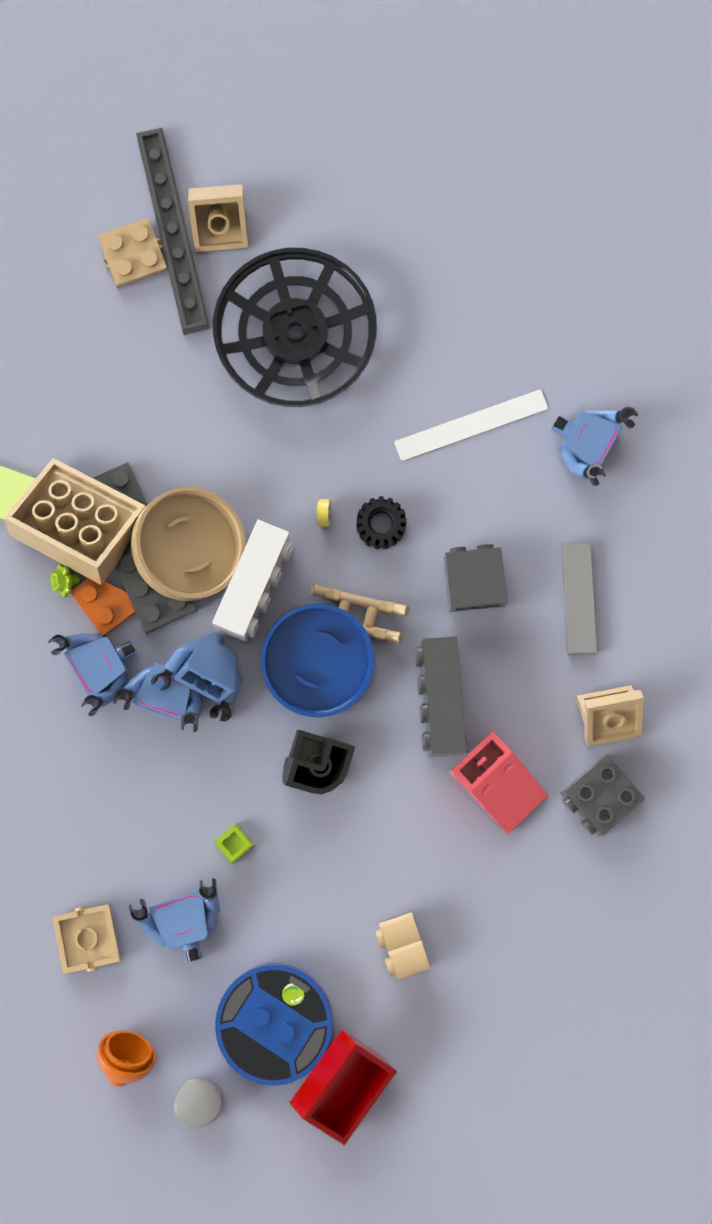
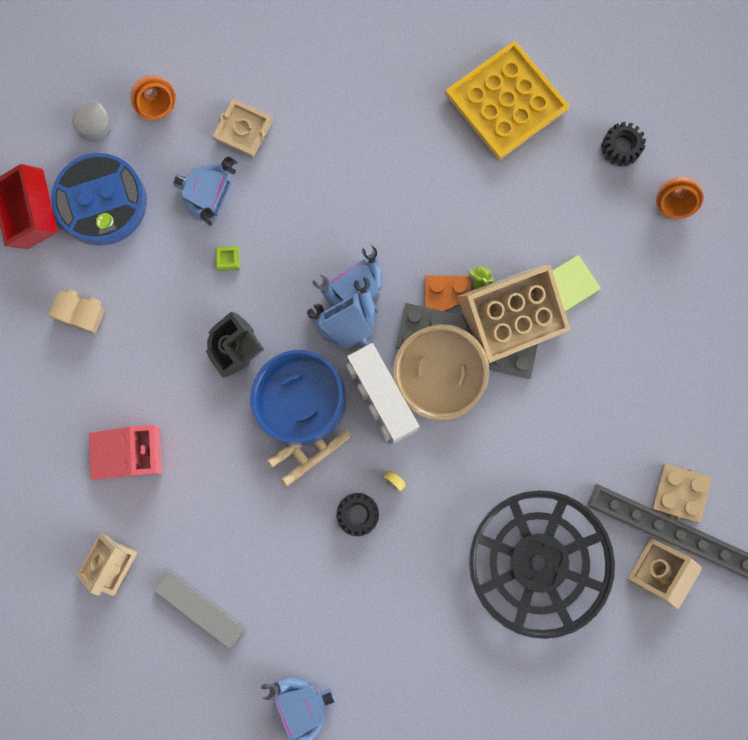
camera: 130 degrees right, 0 degrees up
(96, 665) = (406, 256): medium blue torso -> none
(442, 697) = (203, 457): dark grey brick -> none
(471, 425) = (378, 635): white sticker -> none
(475, 578) = (268, 547): dark grey brick -> none
(602, 796) = (59, 514): dark grey brick -> none

